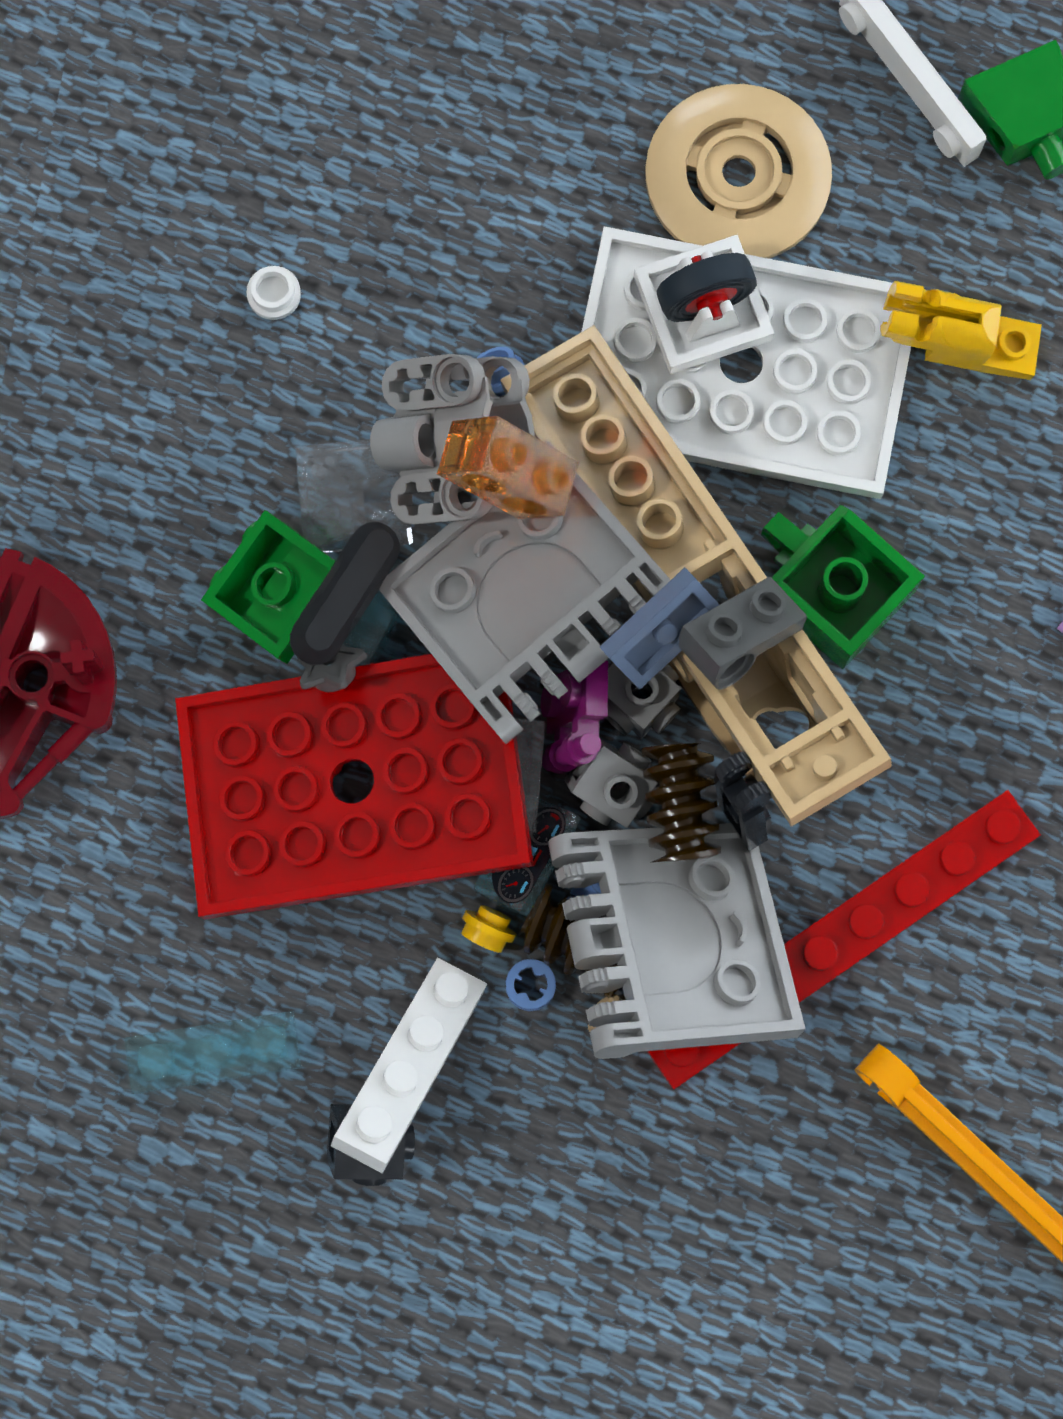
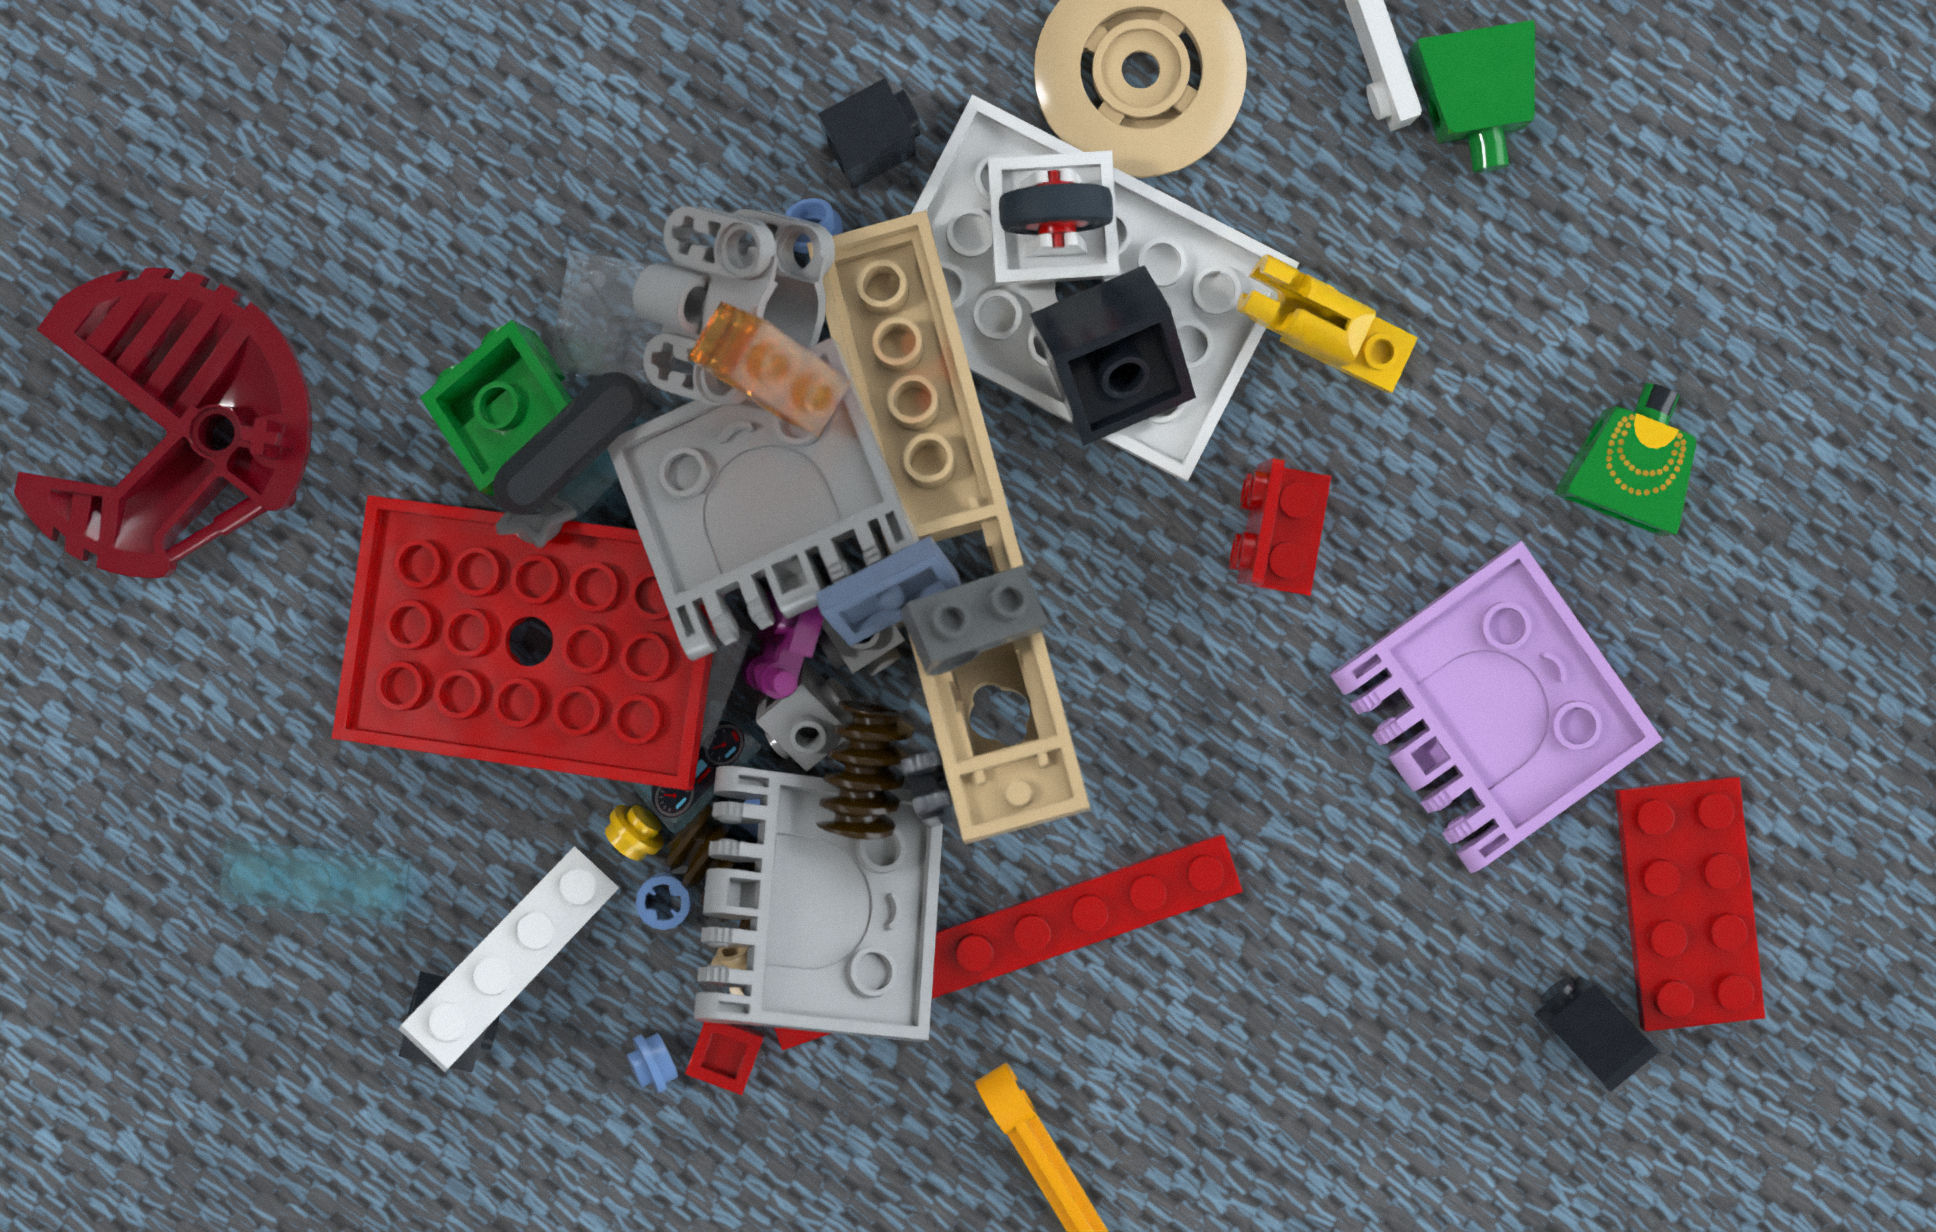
camera: 20 degrees right, 10 degrees up
(273, 292) = (591, 67): white plate -> none
(528, 276) = (871, 132): none -> black brick
(560, 1131) = (652, 1062): none -> medium blue plate
(623, 1106) = (725, 1055): none -> red plate
(790, 401) = (1114, 354): none -> black slope
(840, 579) = (1108, 566): green hinge -> none
(976, 512) = (1281, 529): none -> red bracket

